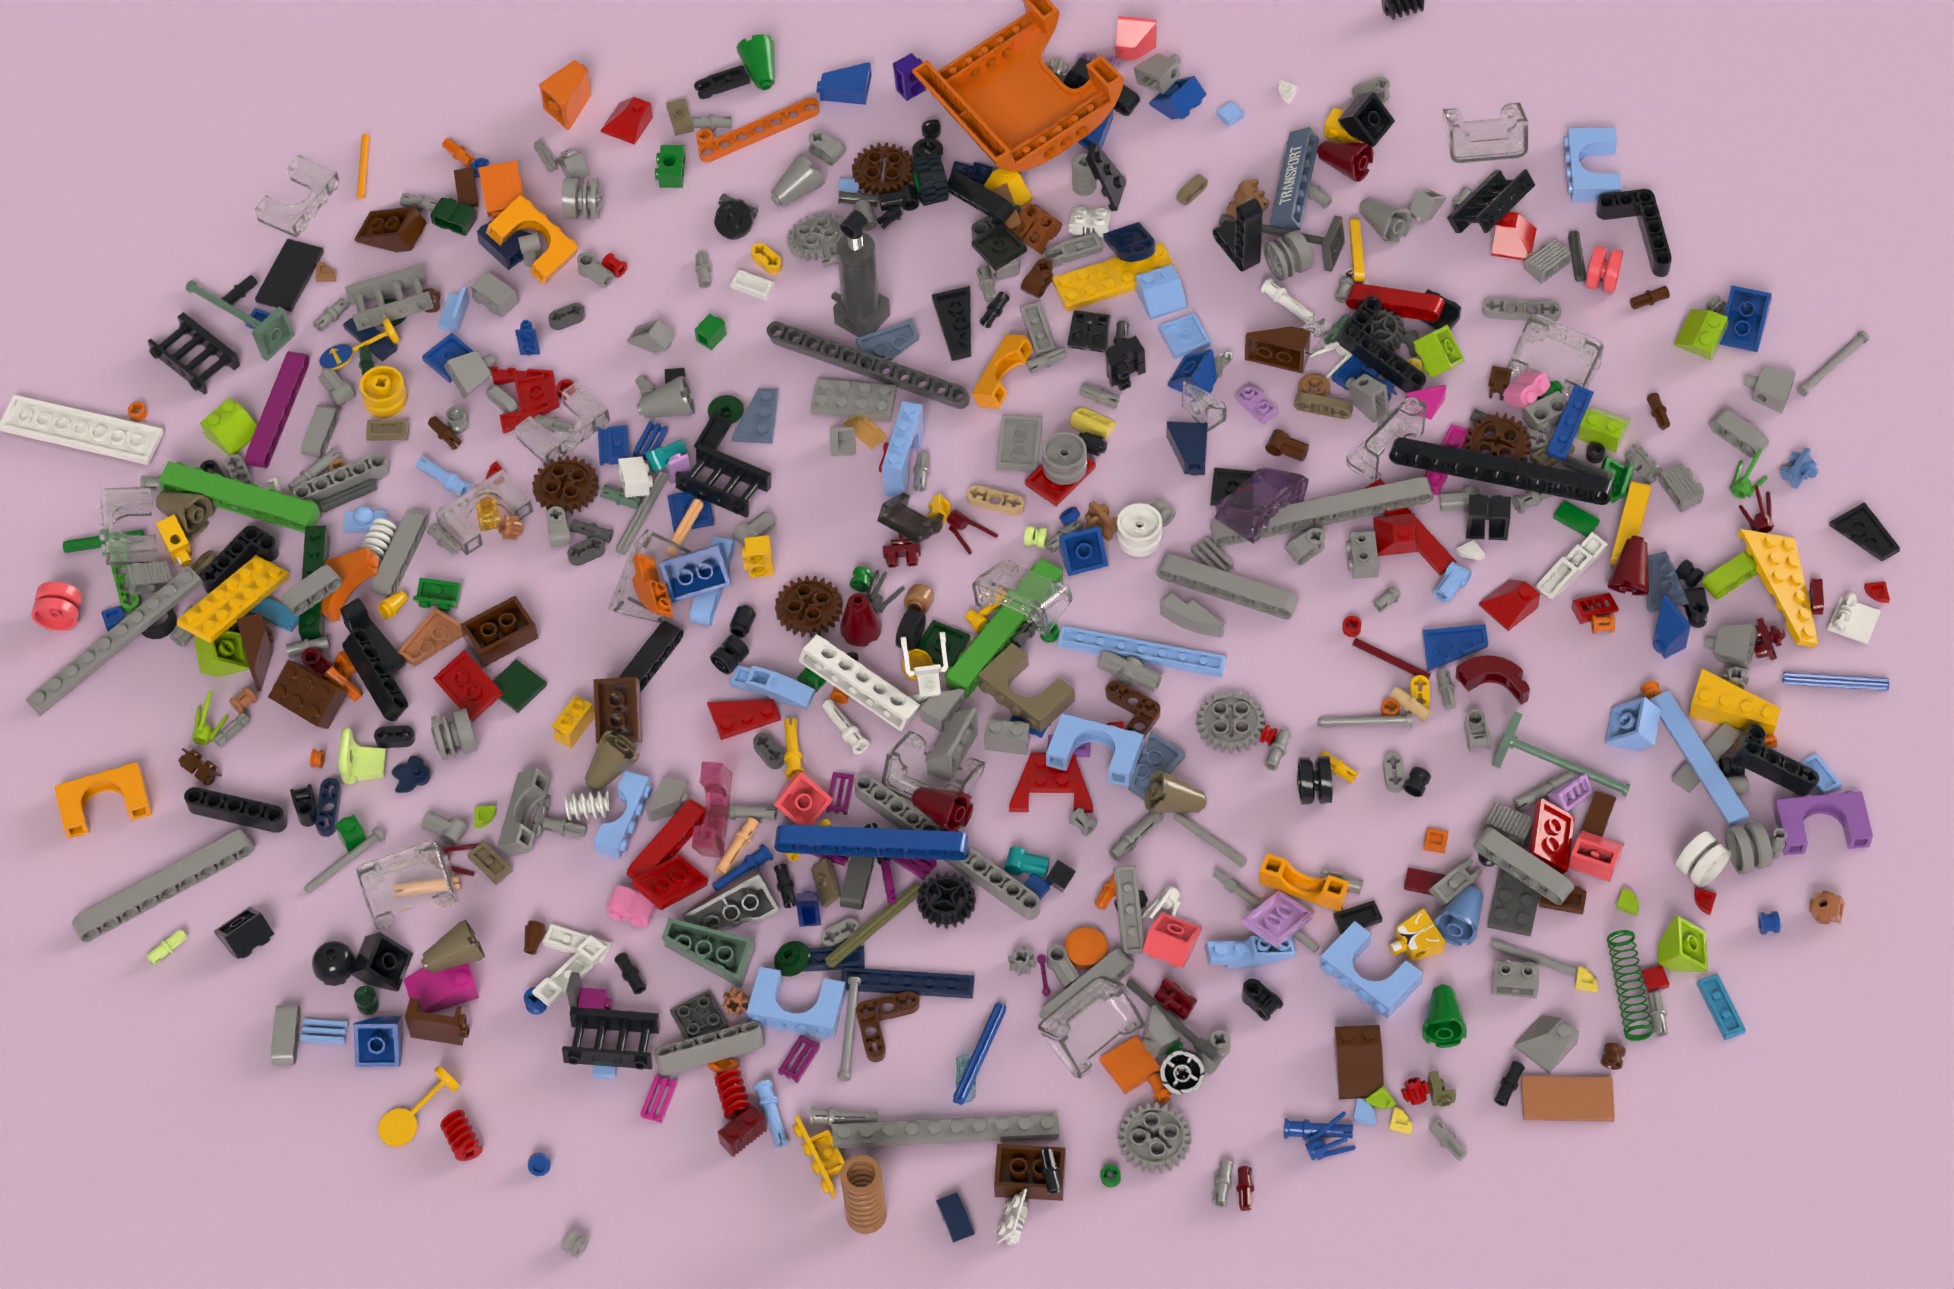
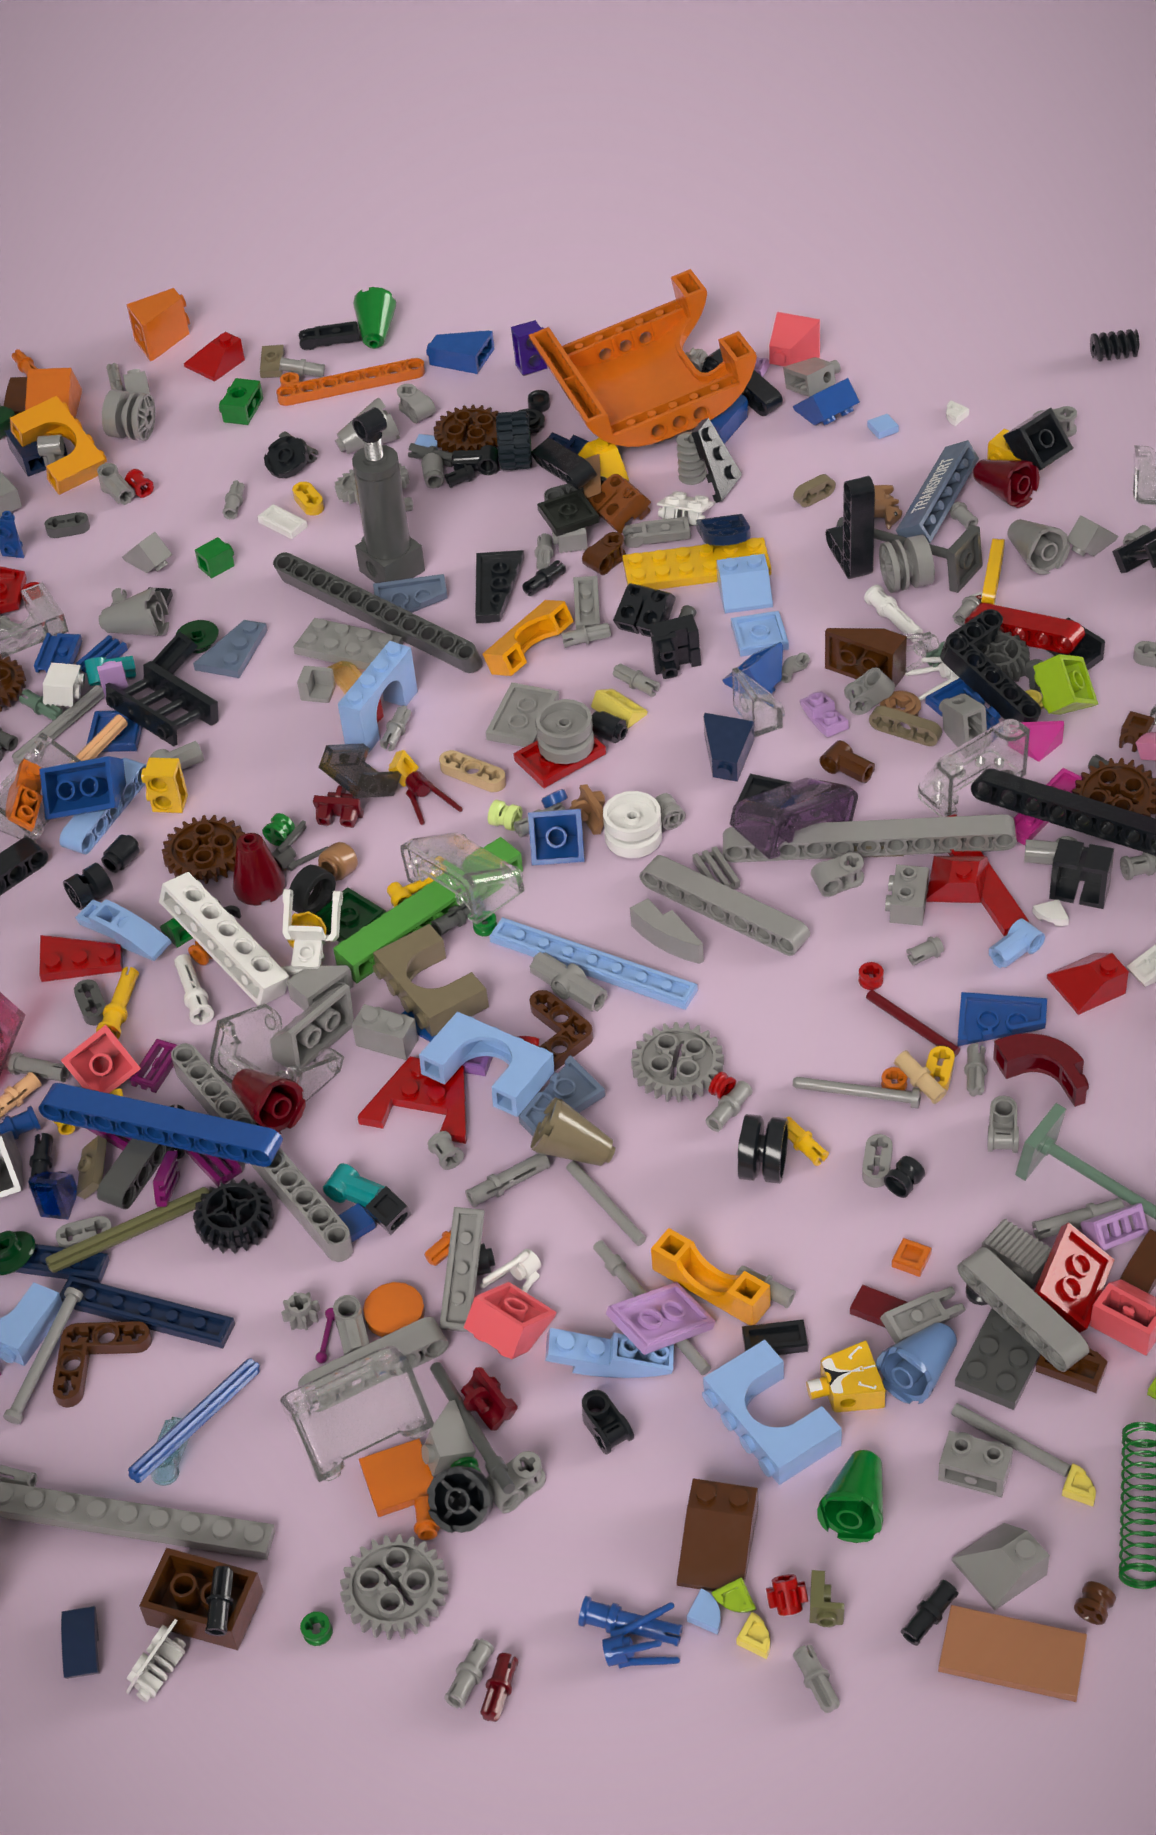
camera: 15 degrees right, 10 degrees down
(1287, 380) = (870, 689): none -> light grey piece

